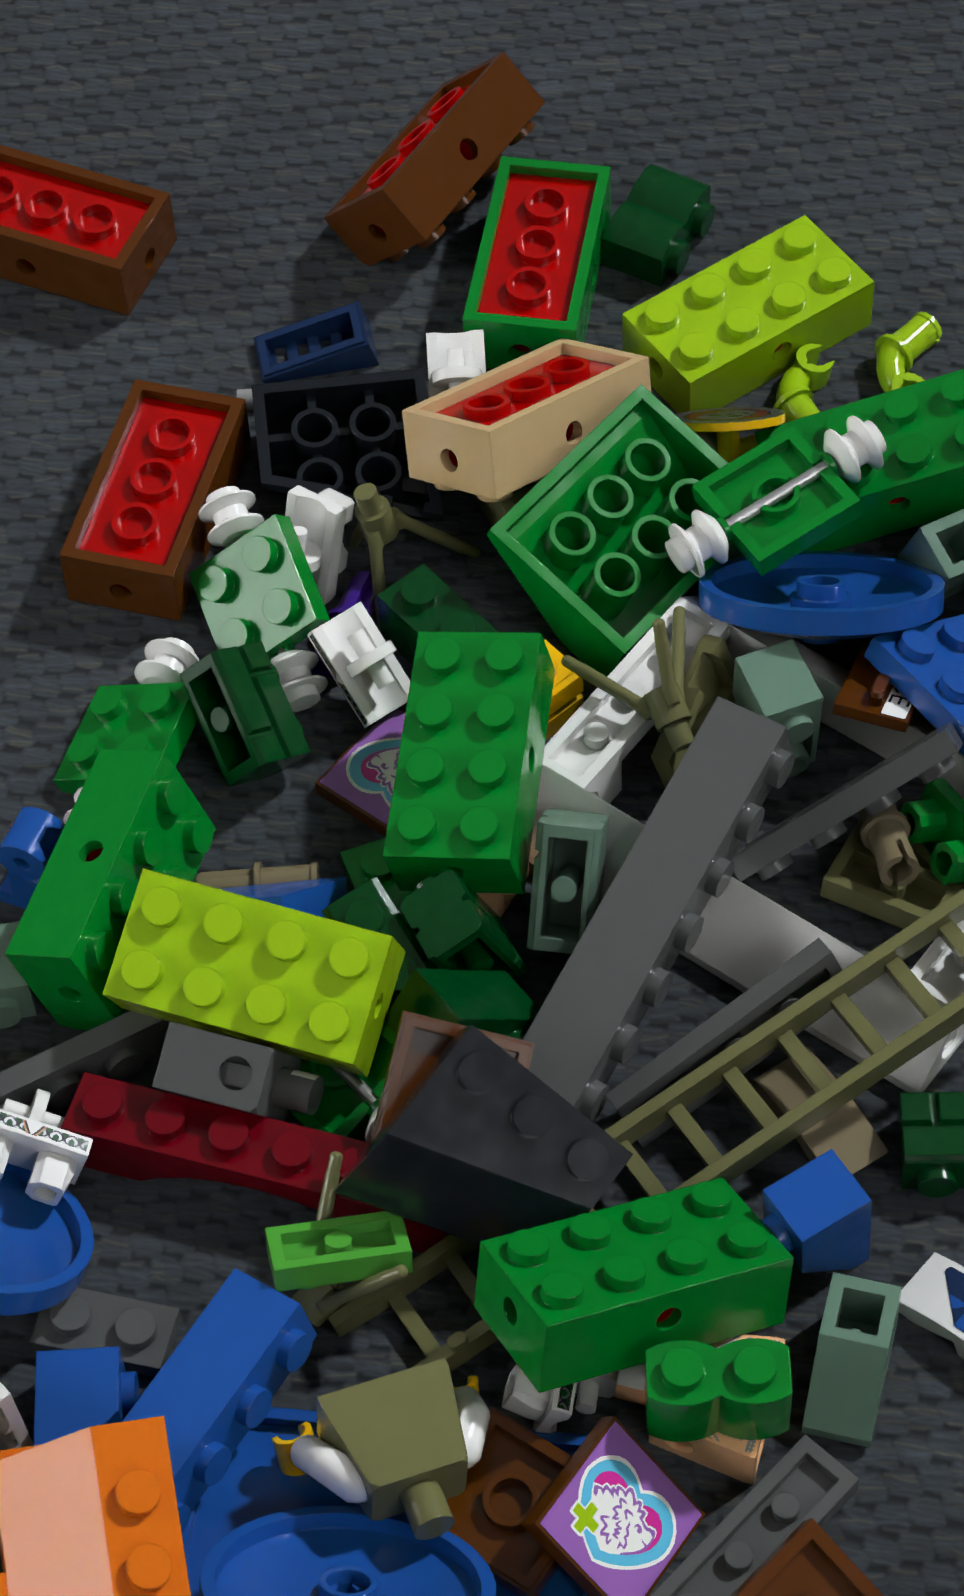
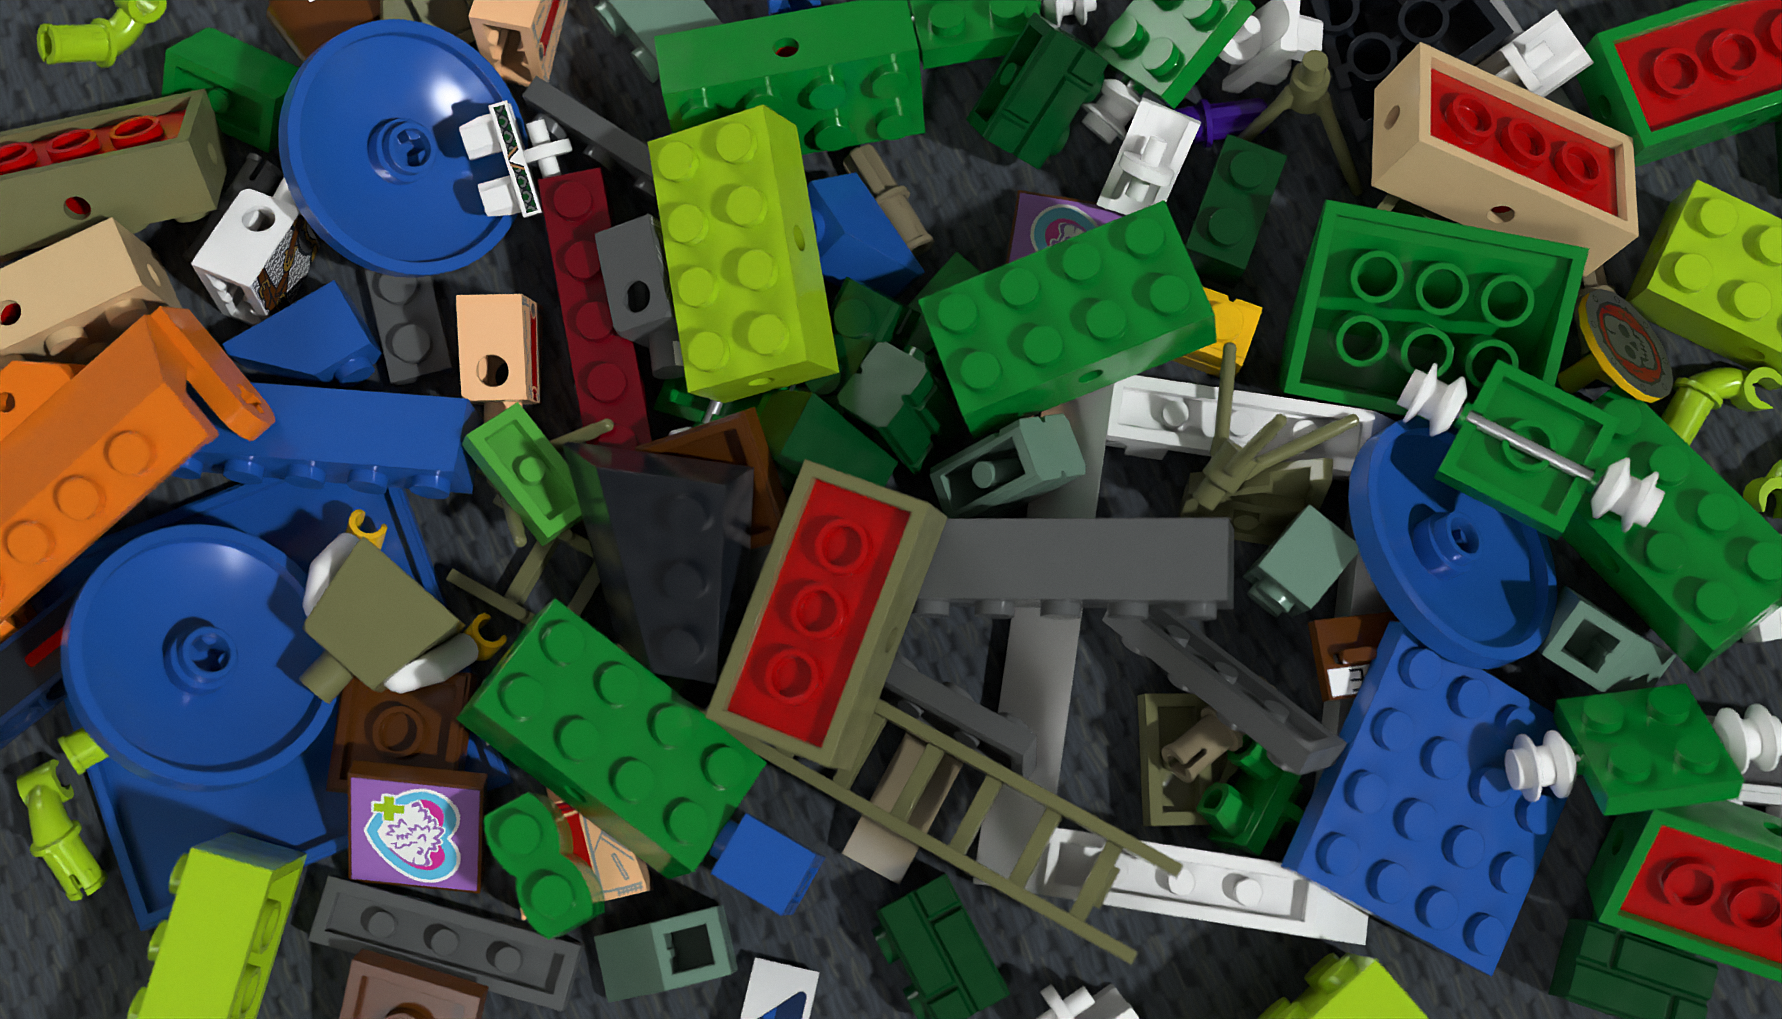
camera: 60 degrees right, 25 degrees up
(197, 1237) = (495, 332): none -> light nougat torso
(626, 1036) = (827, 616): none -> brick

